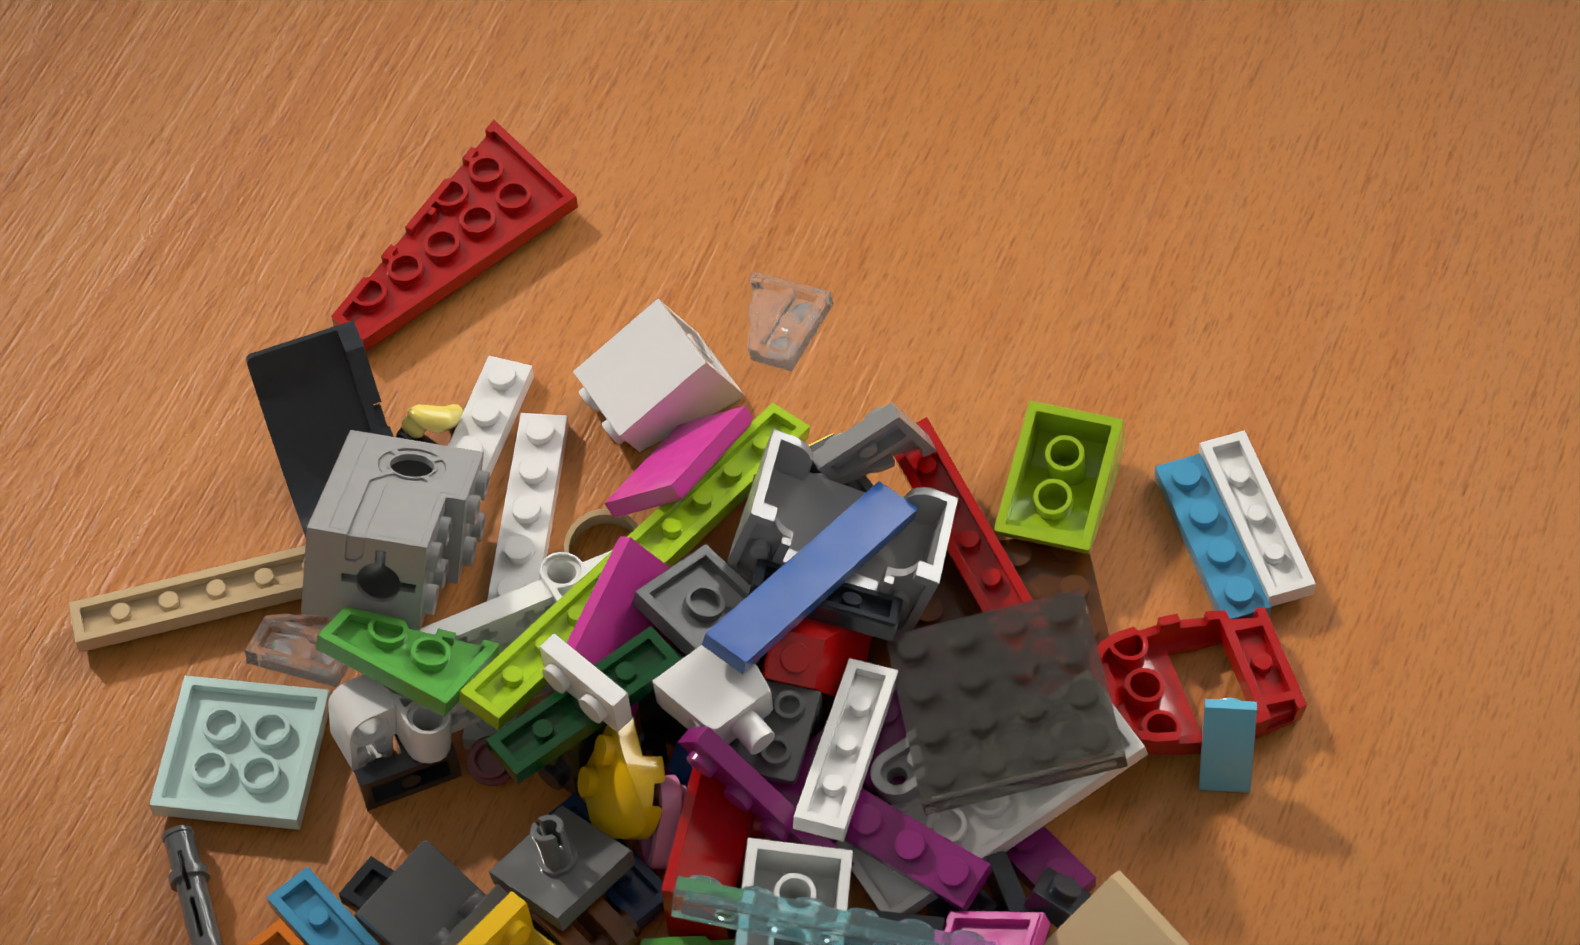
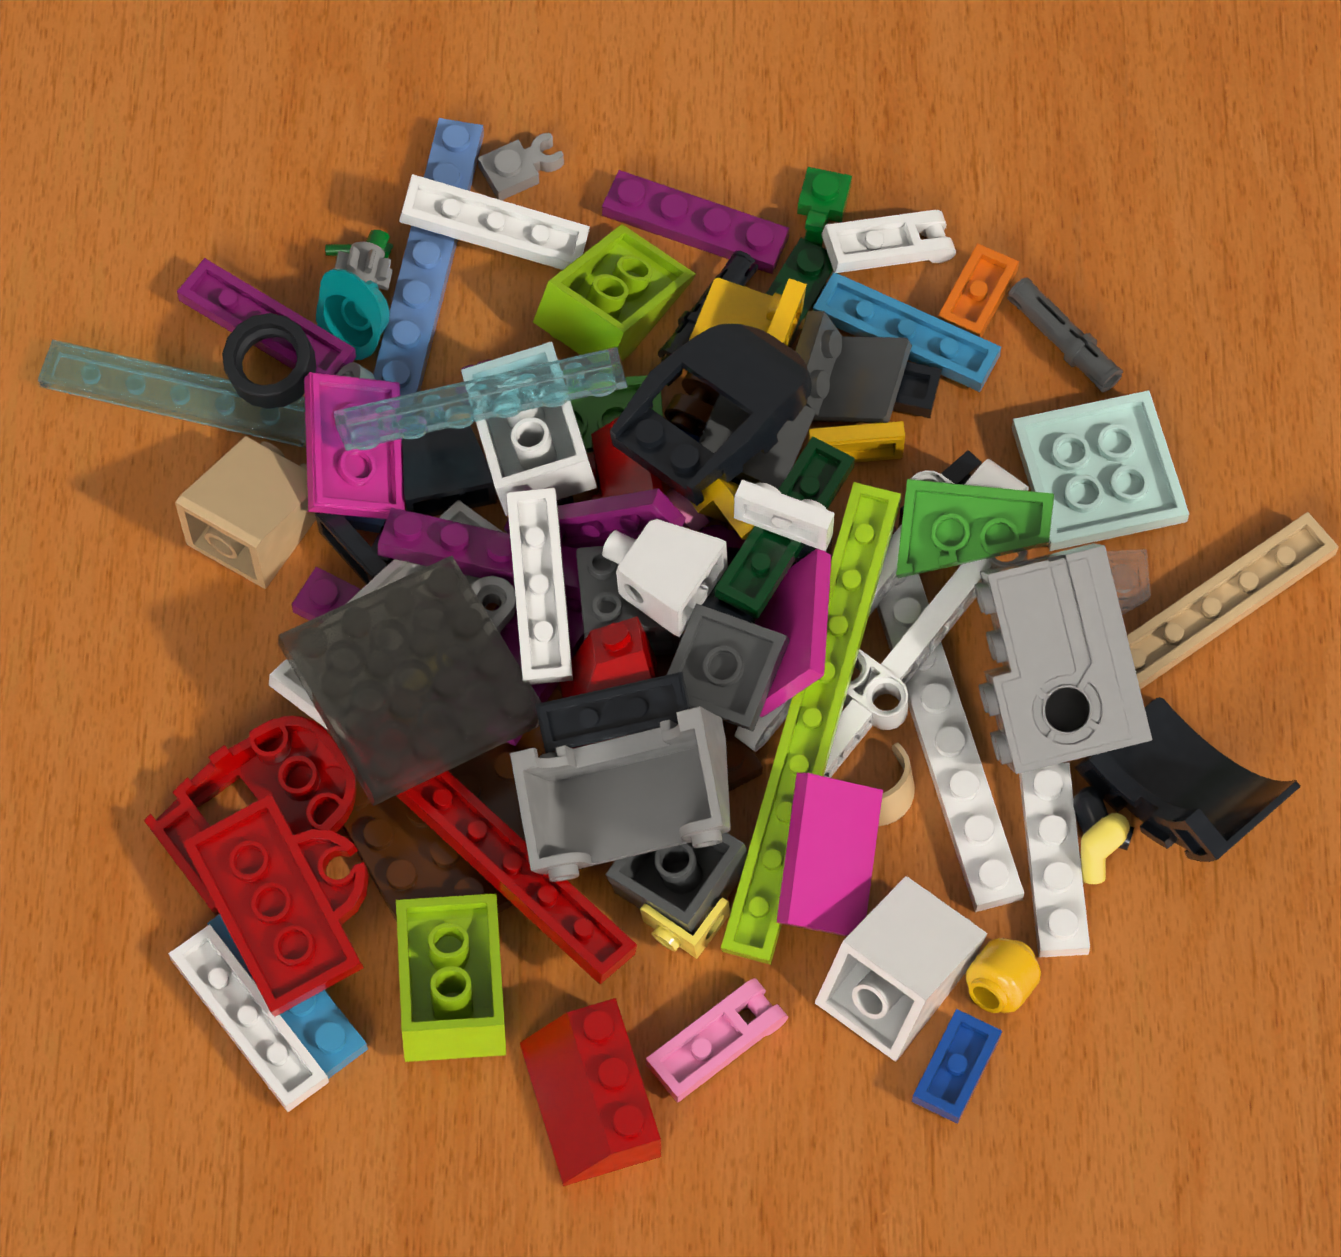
camera: 155 degrees right, 10 degrees up
(462, 229) = (1191, 1105): red wing -> none
(463, 848) = (865, 441): none -> yellow tile
(550, 865) = (746, 369): none -> black slope
(569, 347) = (1003, 975): none -> yellow head
(663, 283) = (956, 1066): none -> blue plate
(783, 319) = (809, 1093): clear wing -> none
(809, 577) = (628, 707): tile -> none
(844, 380) = (714, 1040): none -> bright pink plate
(871, 445) = (631, 892): light grey wing -> none
(971, 367) = (591, 1093): none -> red slope
(1056, 896) = (313, 552): black plate -> none
(1195, 574) = (281, 901): none -> red plate
(1227, 745) = (203, 743): medium azure slope -> none

